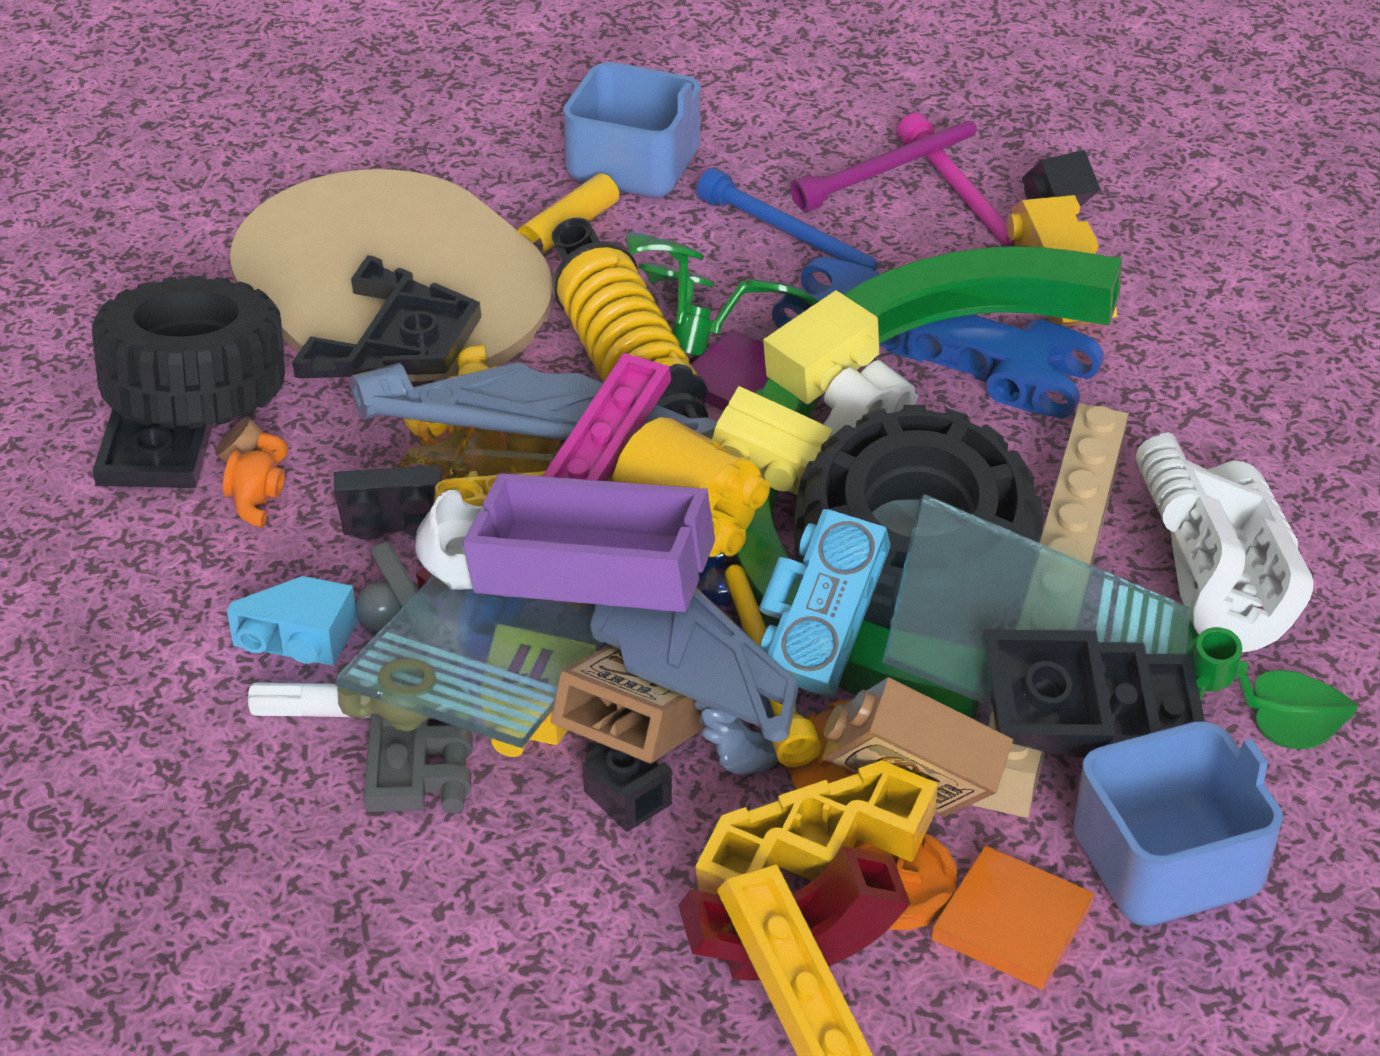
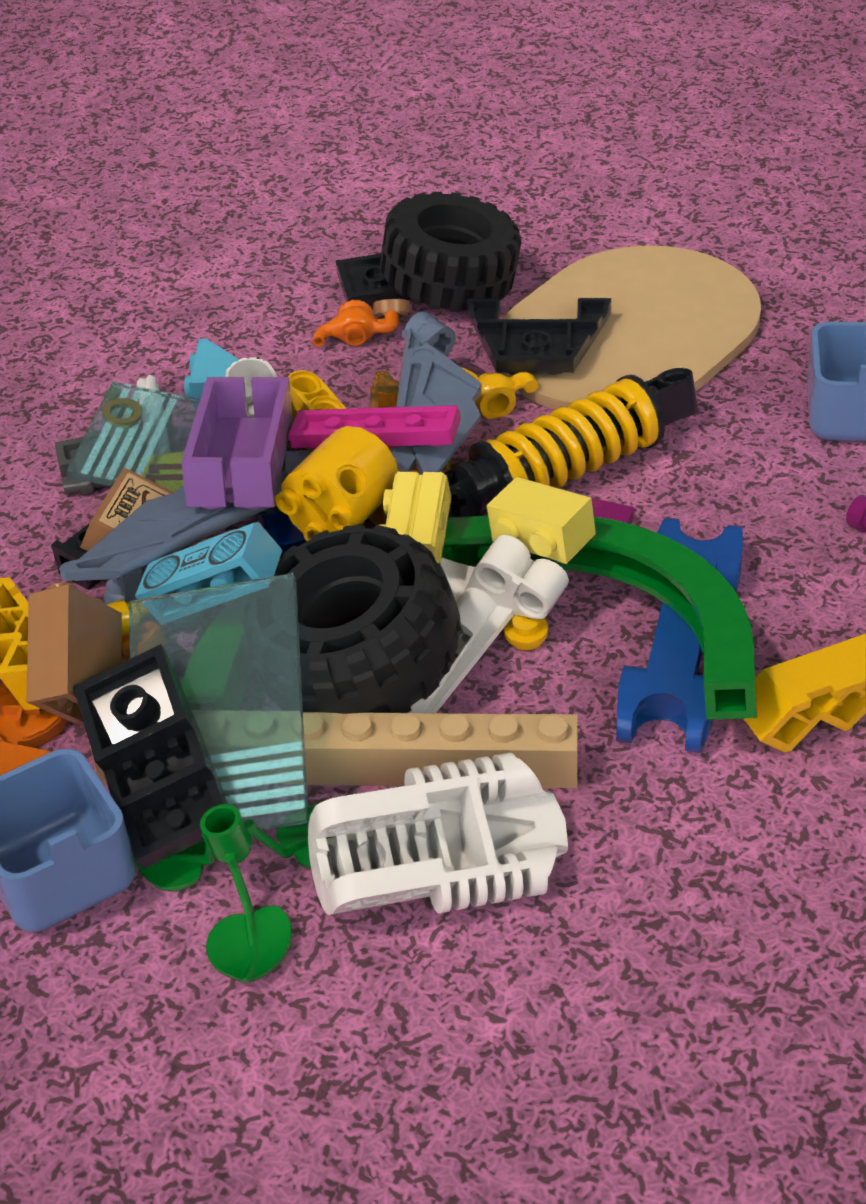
camera: 80 degrees right, 0 degrees up
(385, 499) = (314, 361): black plate -> none
(583, 202) = (749, 389): yellow piece -> none
(693, 323) = (650, 500): green plant -> none
(719, 188) = (838, 462): blue piece -> none

